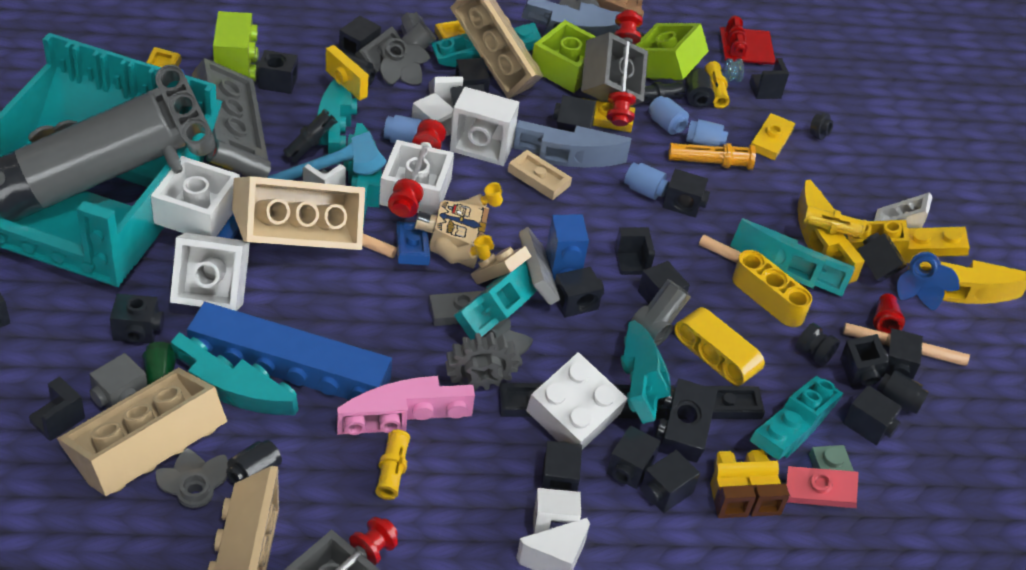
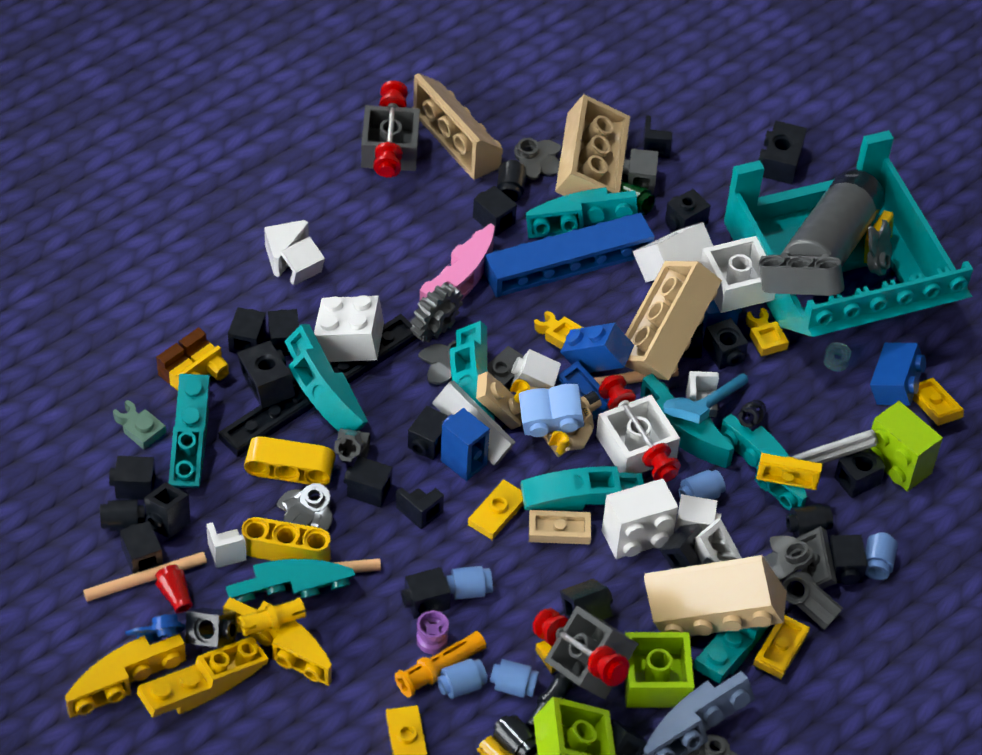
camera: 145 degrees right, 5 degrees up
(238, 126) = (818, 380): dark grey hinge -> none
(285, 79) = (840, 448): none -> light grey axle
(308, 442) = (494, 208): none -> black brick
(328, 28) = (880, 555): none -> medium blue brick
(376, 243) = (598, 347): none -> blue brick
(377, 299) = (555, 330): none -> yellow plate
(392, 464) = (426, 228): yellow pin -> none
(443, 271) = (536, 370): none -> white brick
(476, 211) = (551, 410): none -> light blue brick
(516, 180) = (575, 487): none -> teal slope
(561, 466) = (319, 286): black brick -> none
(572, 149) = (560, 569): sand blue slope -> none
(591, 212) = (497, 510): none -> yellow plate
(706, 164) = (432, 632): none -> medium lavender wheel
(732, 307) = (304, 511): none -> dark grey plate
(817, 344) = (207, 513): black wheel -> none
(822, 487) = (139, 394): coral plate -> none
(825, 311) = (226, 547): none -> white panel
(912, 210) = (221, 707): white slope -> none

